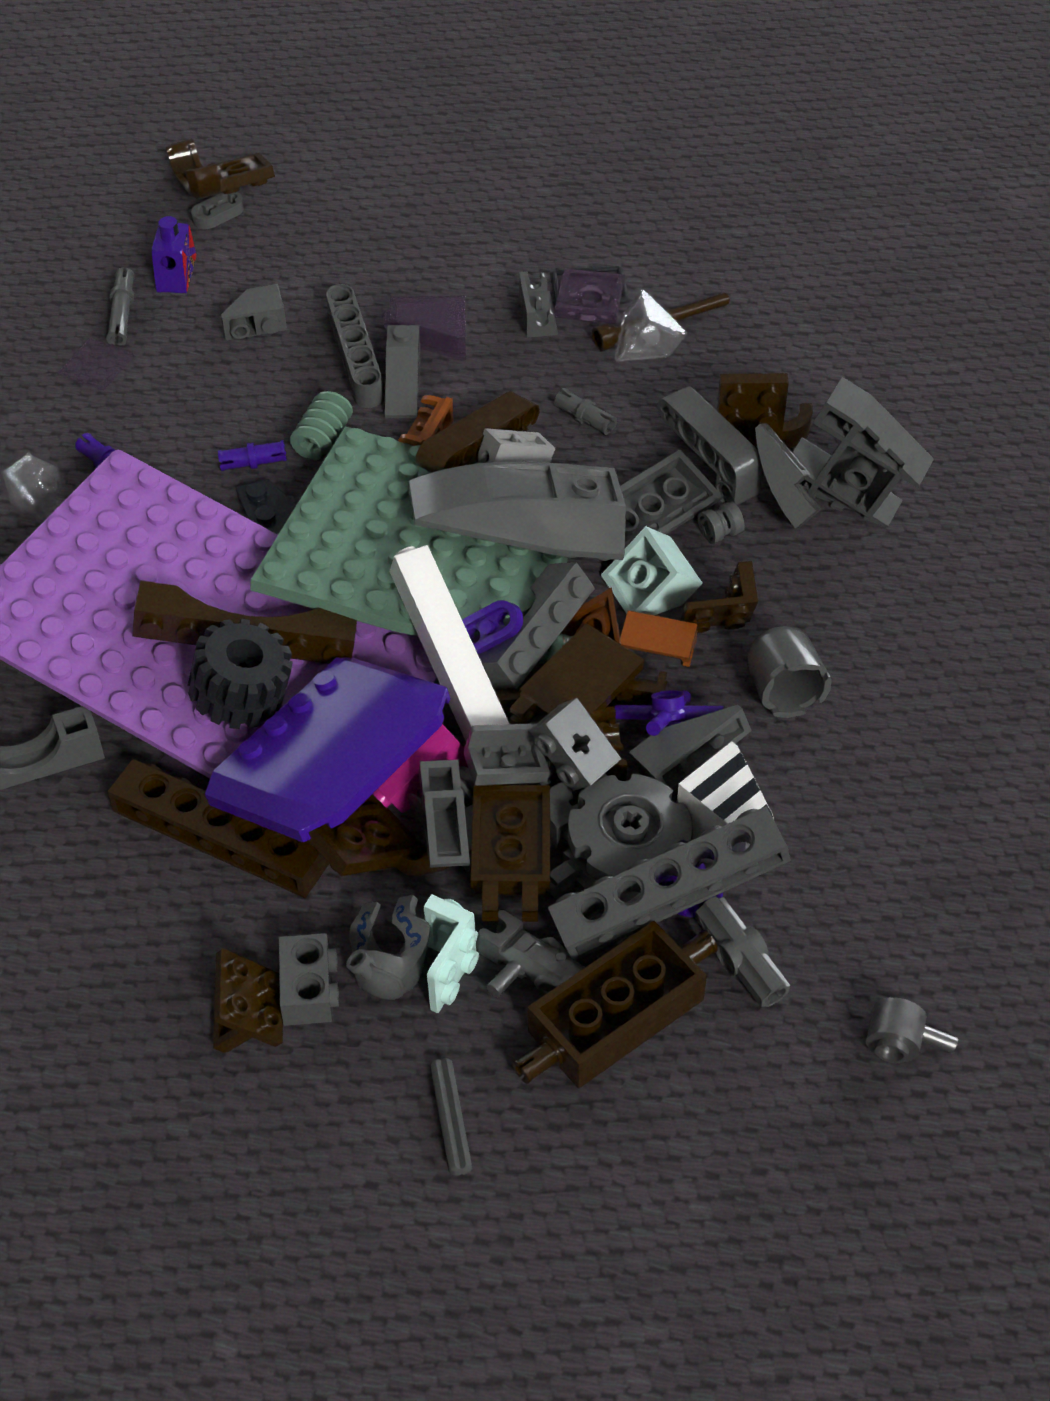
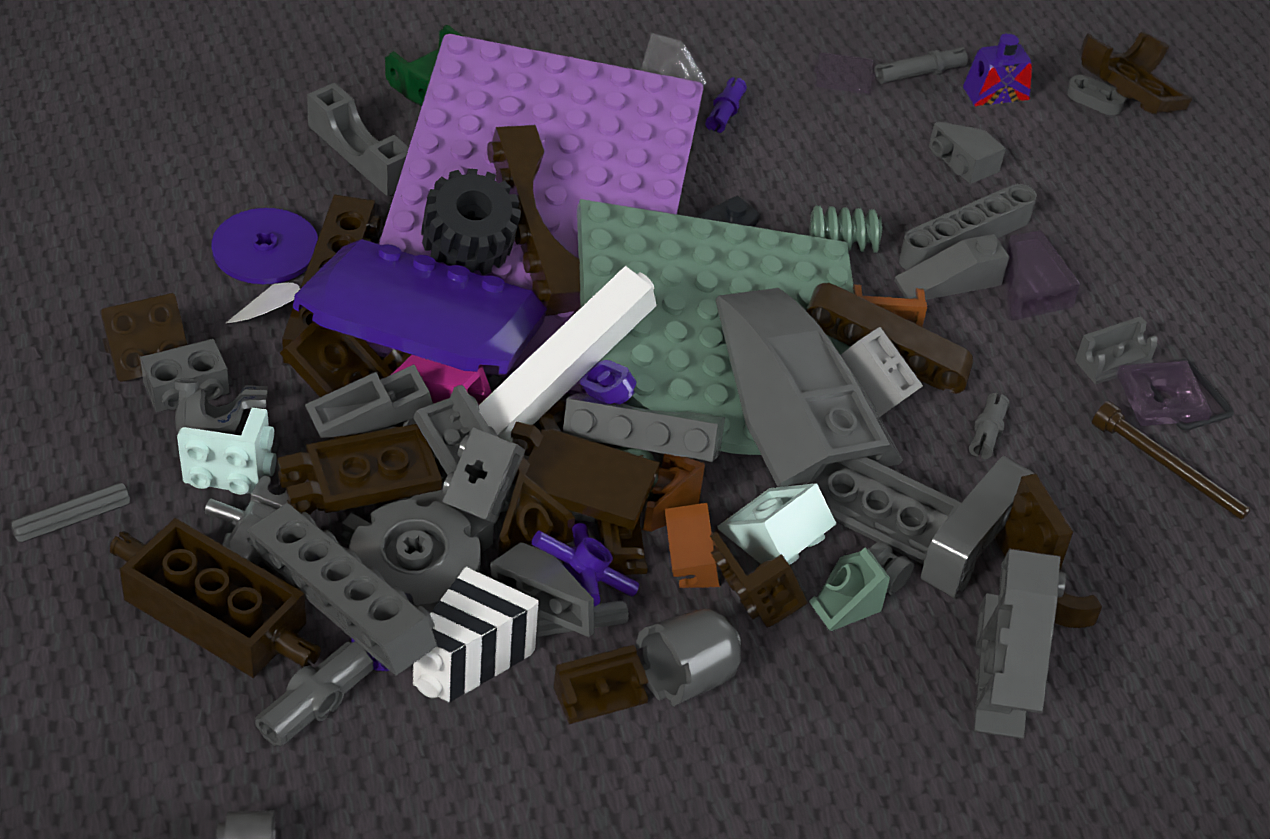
camera: 65 degrees right, 5 degrees down
(112, 897) = (241, 256): none -> dark purple piece
(229, 885) = (272, 298): none -> white sticker
(252, 455) = (783, 196): dark purple pin -> none
(647, 331) = (1131, 446): clear slope -> none
(731, 542) = (852, 590): none -> sand green slope
(785, 476) = (961, 594): dark grey slope -> none
(788, 744) = (600, 684): none -> dark brown hinge

